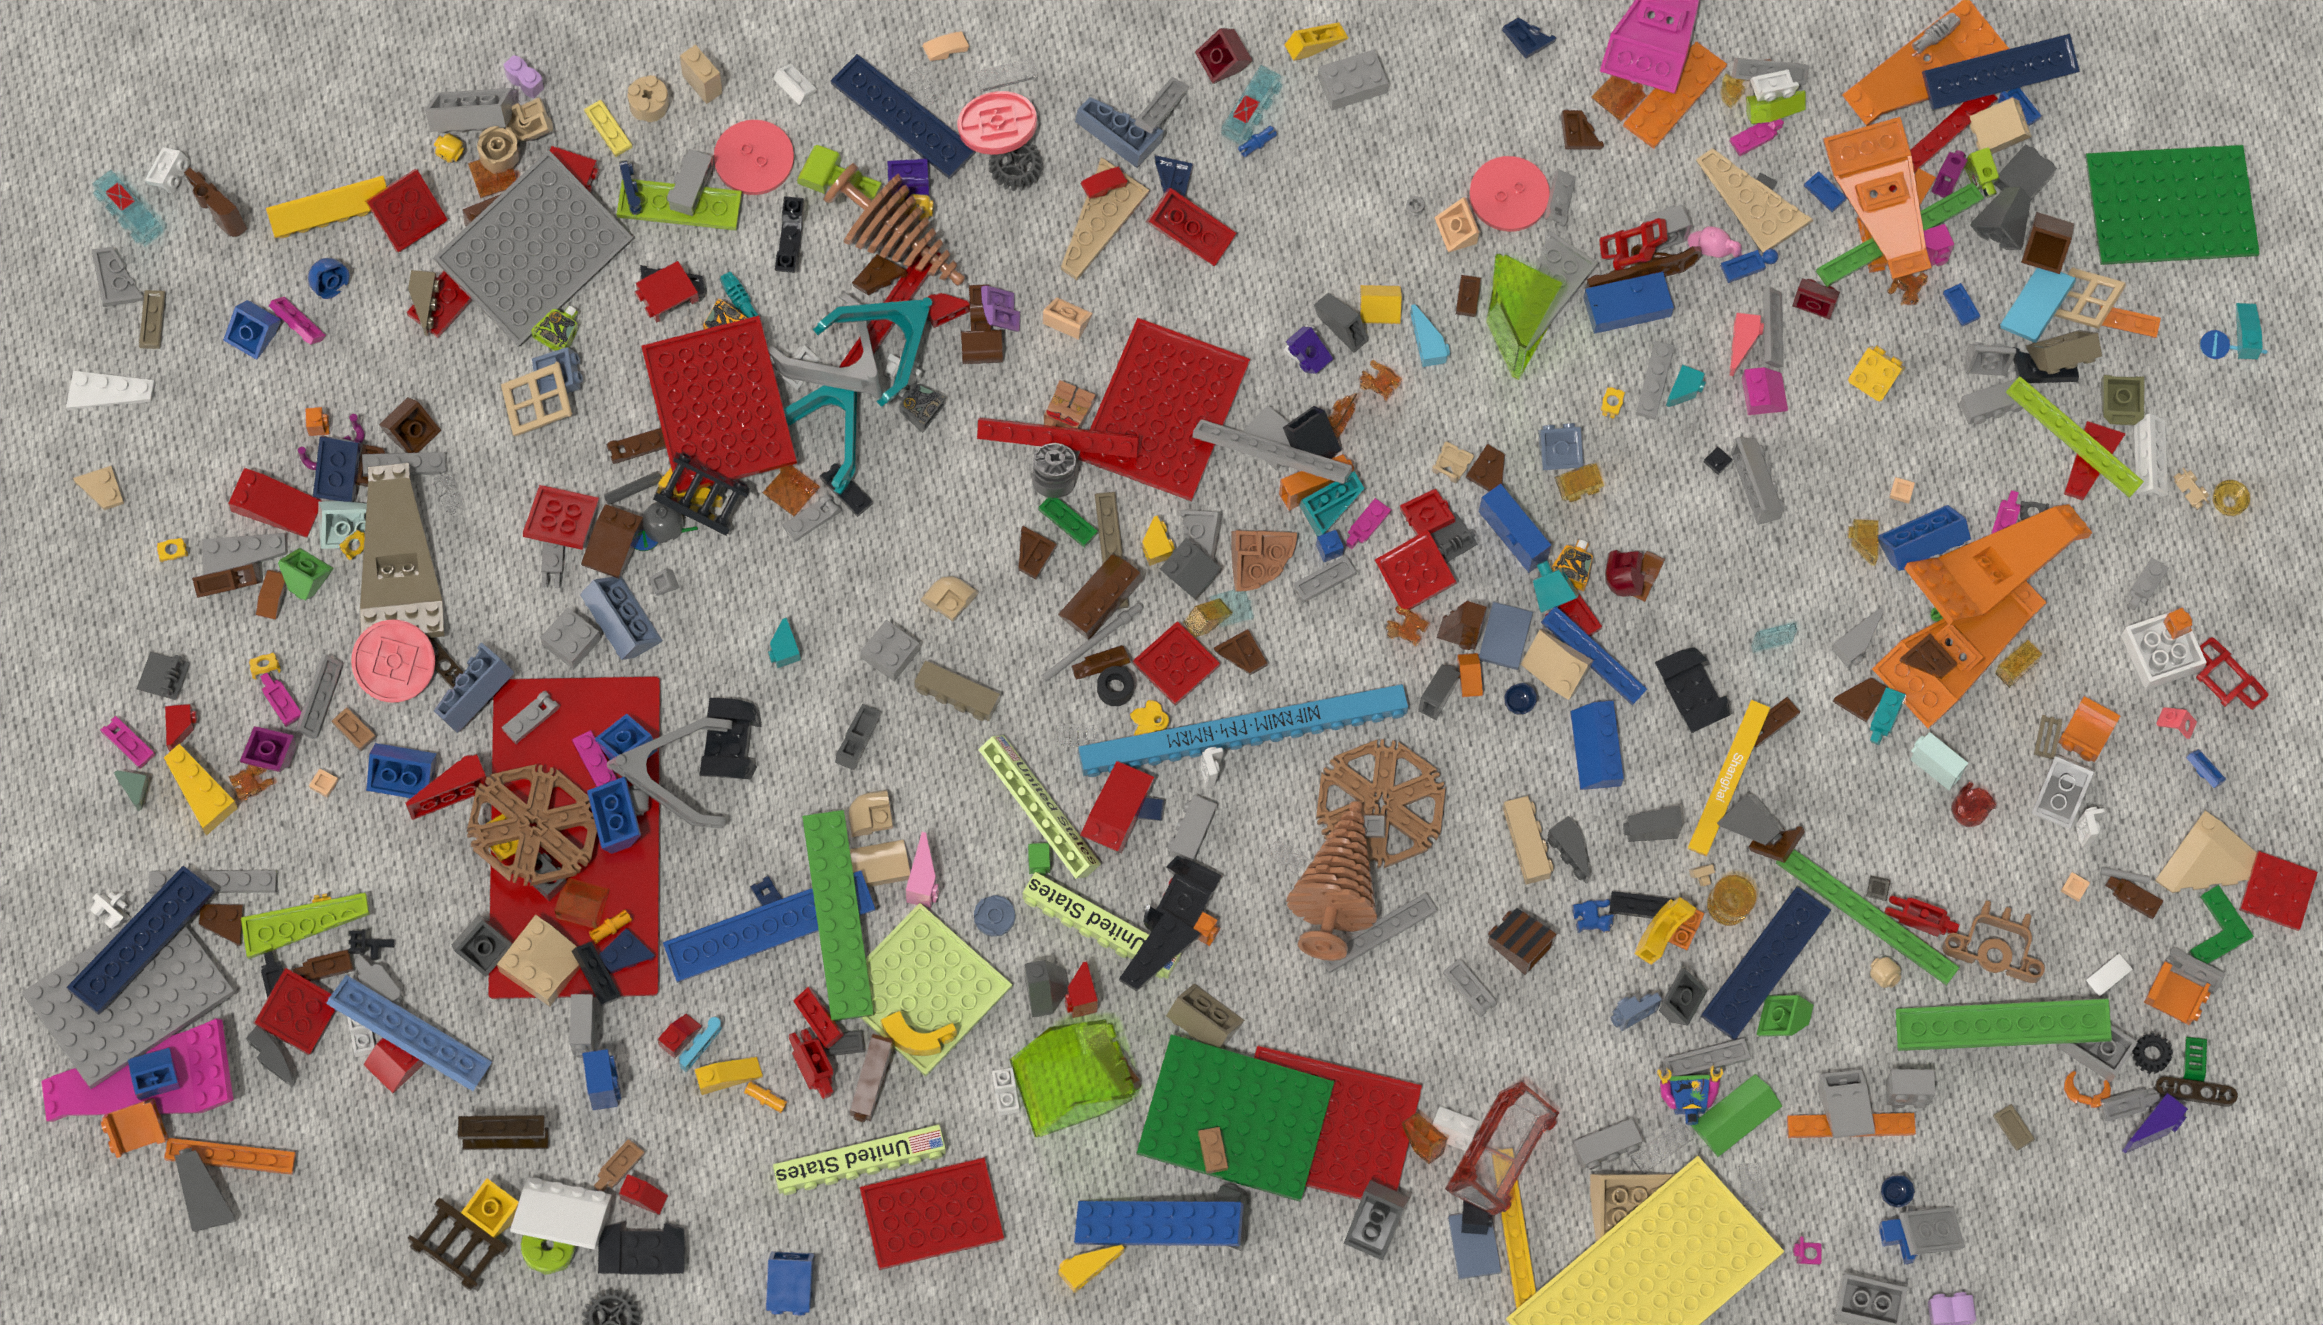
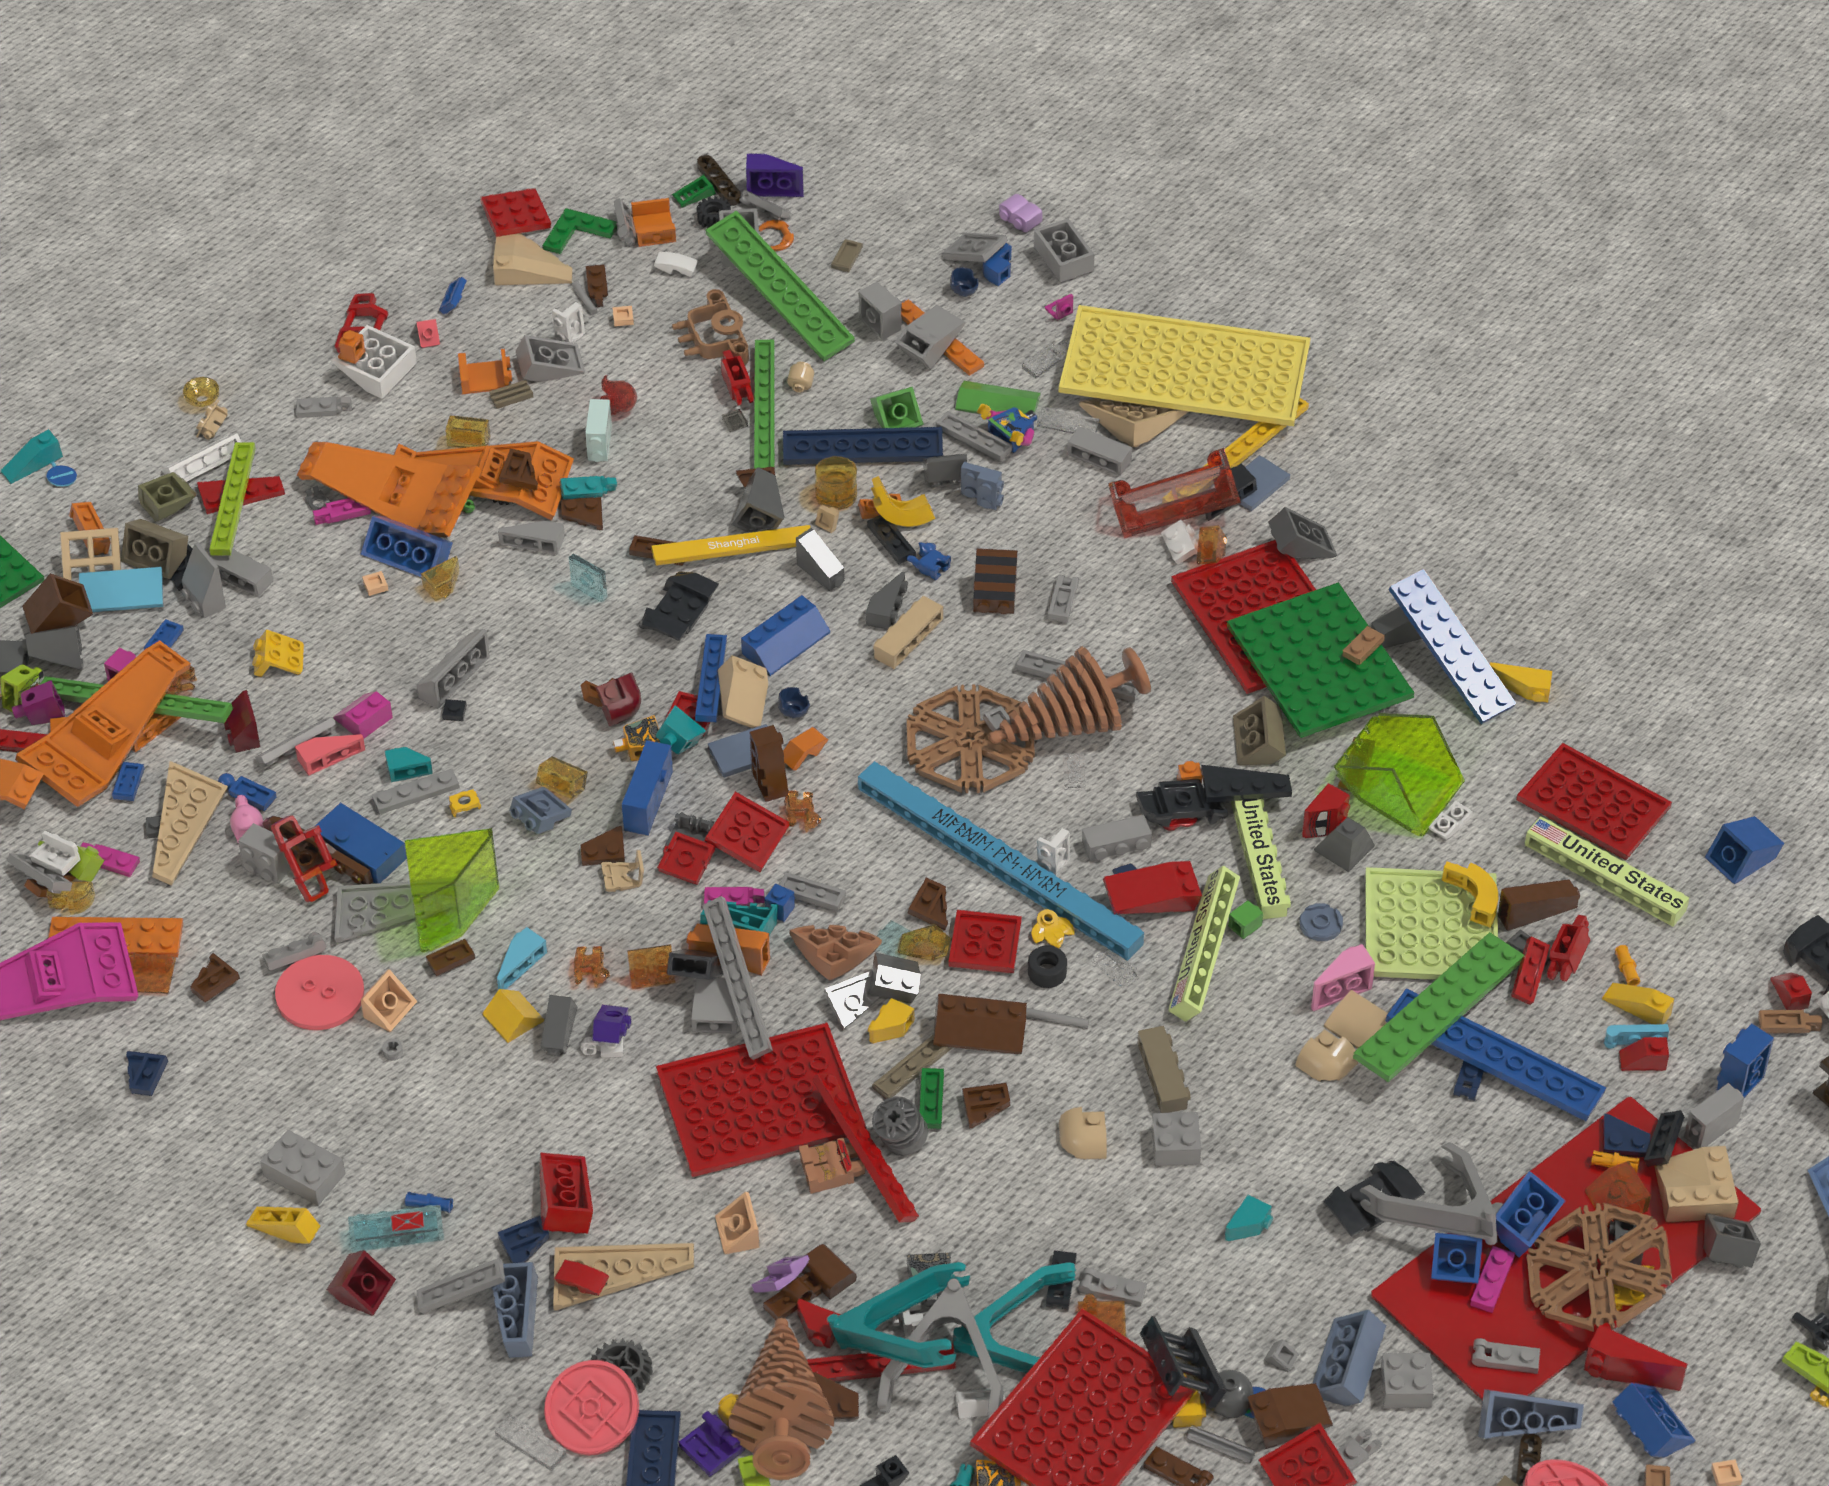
camera: 125 degrees left, 20 degrees down
(857, 737) = (1272, 1111): dark grey slope -> none
(1100, 661) = (1034, 989): reddish brown hinge -> none
(1439, 691) = (839, 753): dark grey slope -> none

